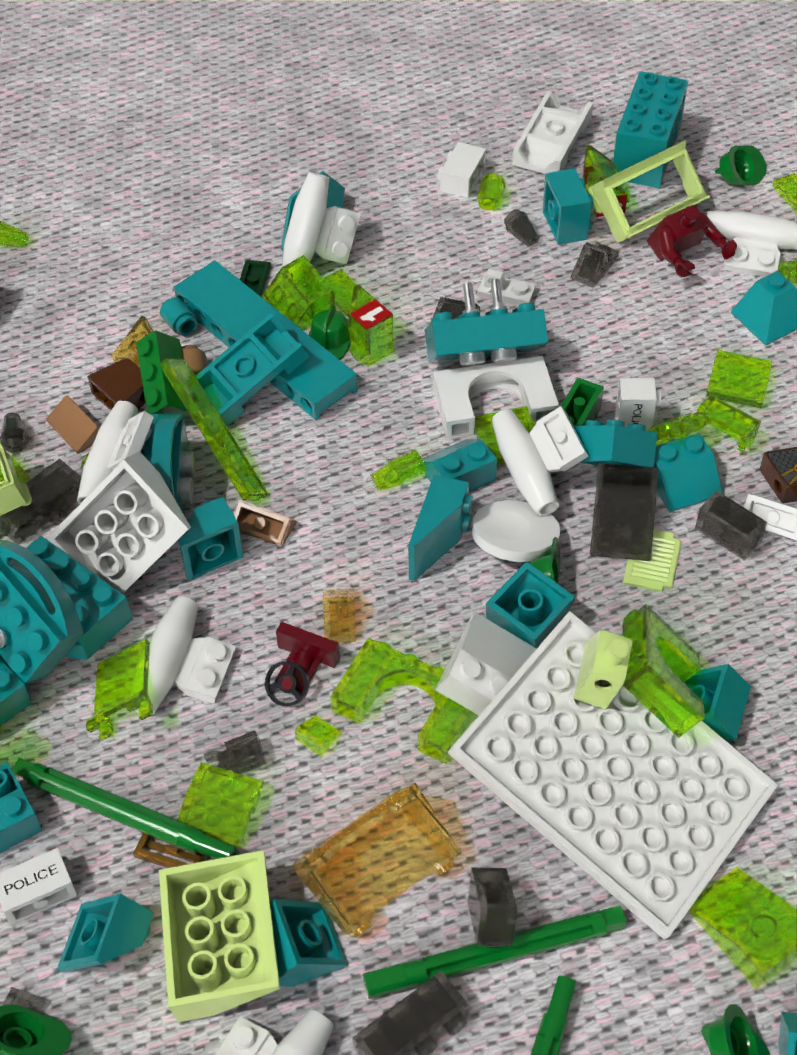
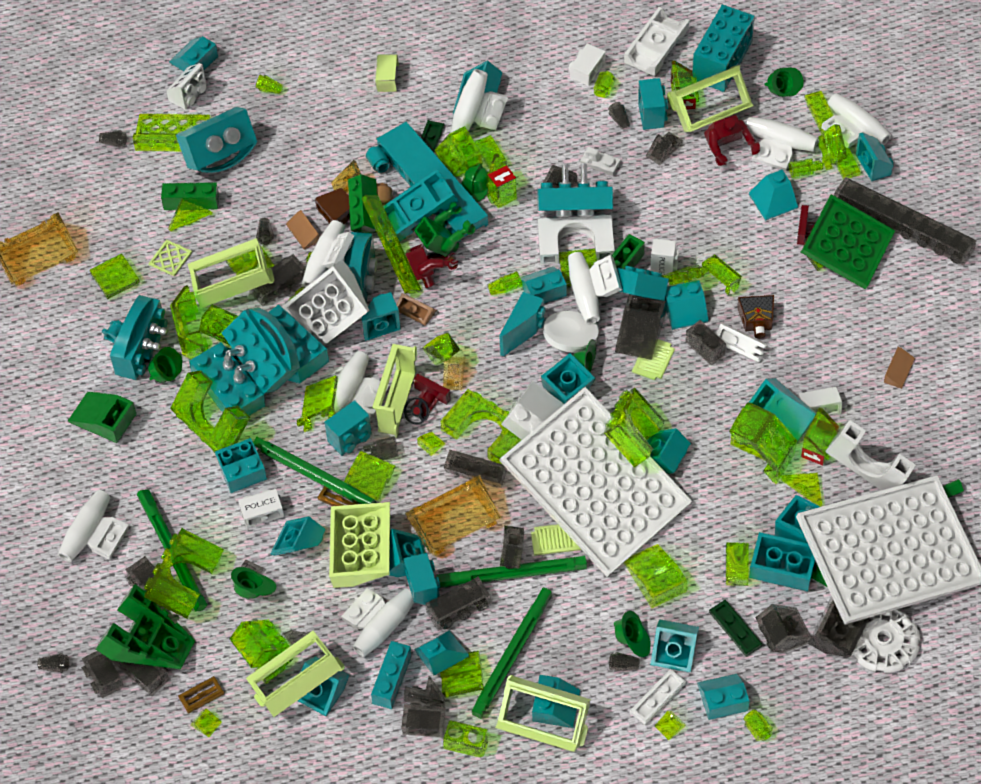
camera: 10 degrees right, 5 degrees up
(175, 725) = (348, 428): none -> teal brick
(176, 197) = (386, 71): none -> yellowish green piece
(245, 692) = (390, 415): none -> yellowish green piece
(270, 454) = (424, 265): none -> dark red torso
(286, 413) = (437, 237): none -> green torso
(315, 578) = (441, 346): none -> clear neon green piece
(339, 989) = (421, 578): none -> teal slope
(400, 768) = (471, 467): none -> clear smoke brick
(554, 882) = (552, 540): none -> yellowish green window
(603, 659) = (597, 419): yellowish green torso -> none
(739, 378) = (739, 243): clear neon green plate -> none

